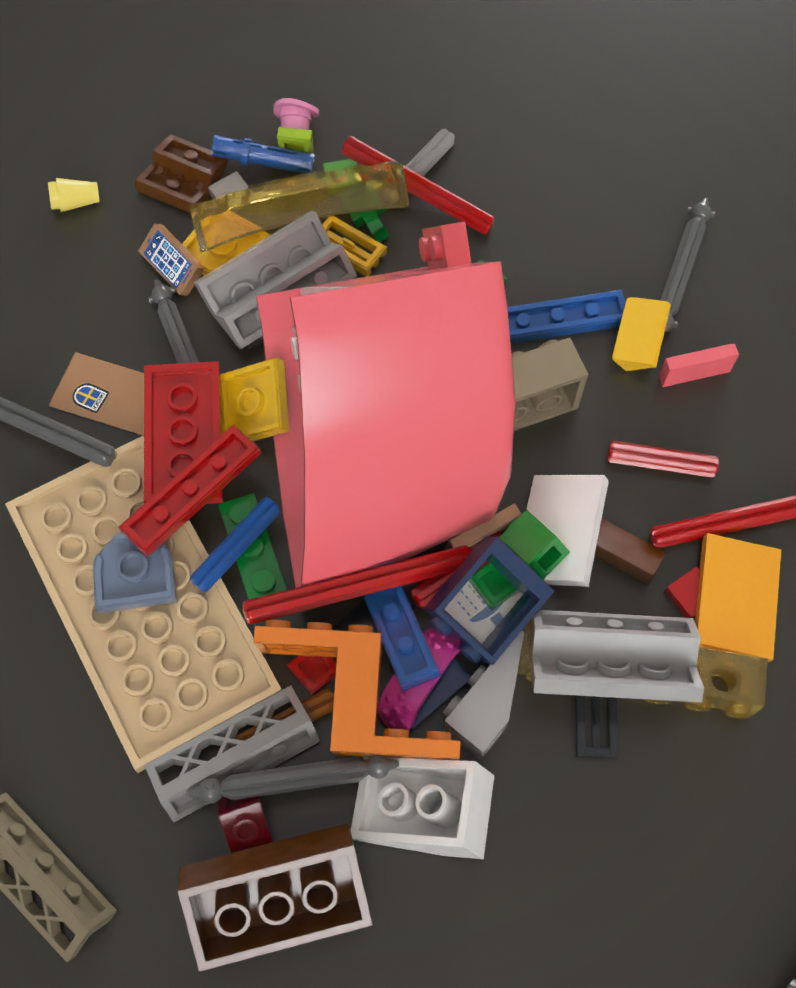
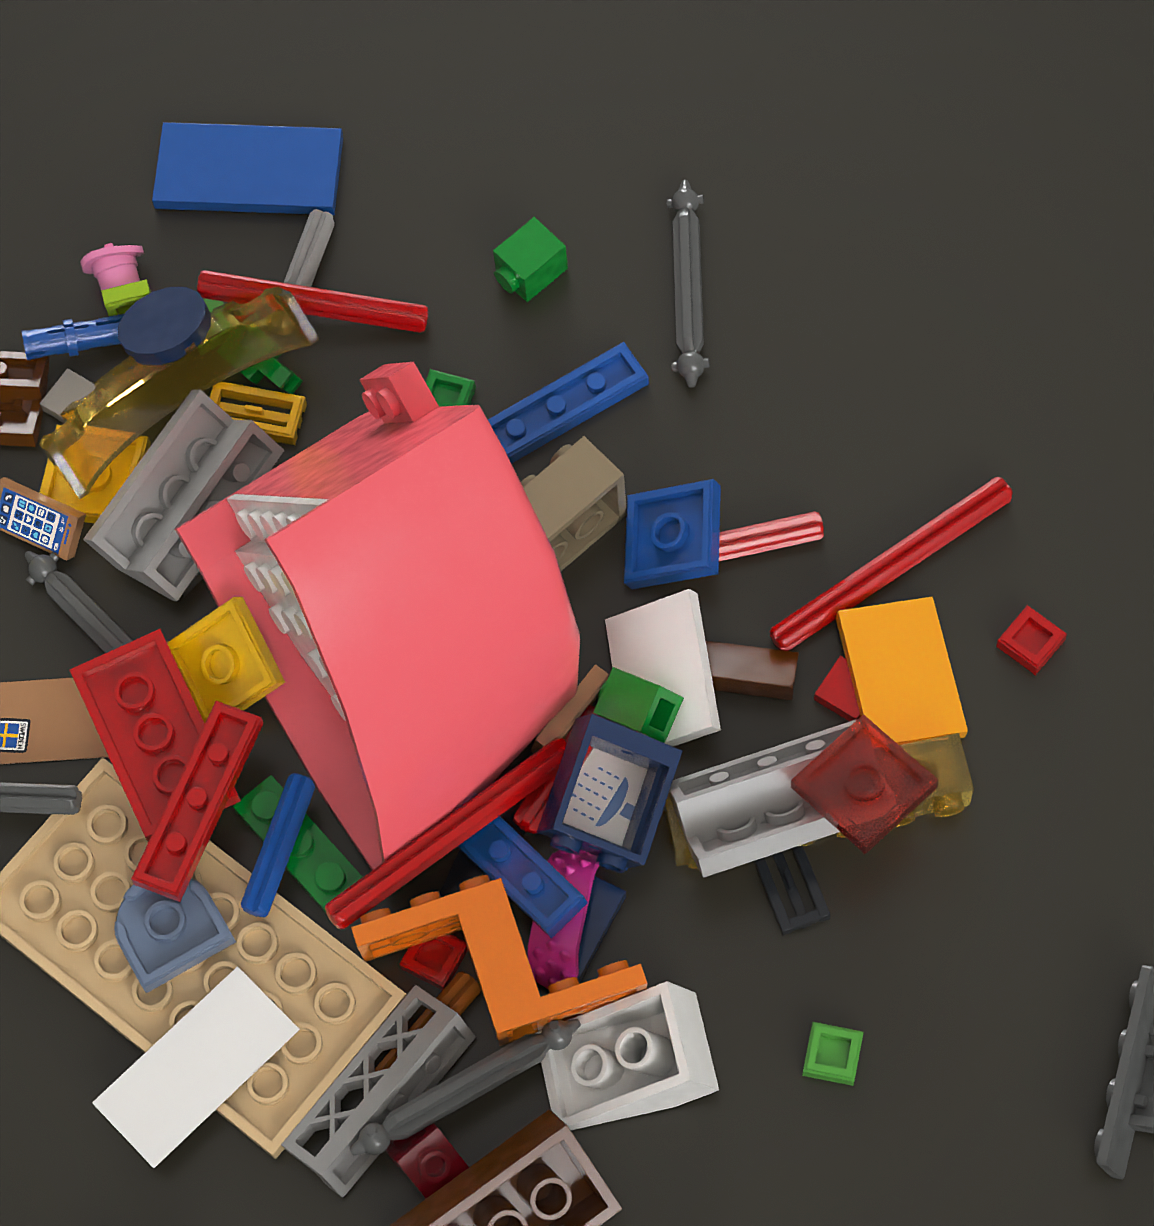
camera: 15 degrees left, 0 degrees up
(108, 681) = (195, 1067): none -> white sticker
(310, 161) = (164, 325): none -> dark blue tile
(411, 88) = (247, 168): none -> blue tile
(486, 707) = (656, 917): light grey slope -> none
(492, 586) = (608, 774): green tile -> none
(577, 211) = (529, 260): none -> green brick
(580, 865) = (833, 1053): none -> bright green tile
(606, 433) = (672, 534): none -> blue tile
(640, 333) = (668, 391): yellow slope -> none
(684, 671) = (864, 784): none -> clear red tile
(698, 365) = (753, 405): coral tile -> none

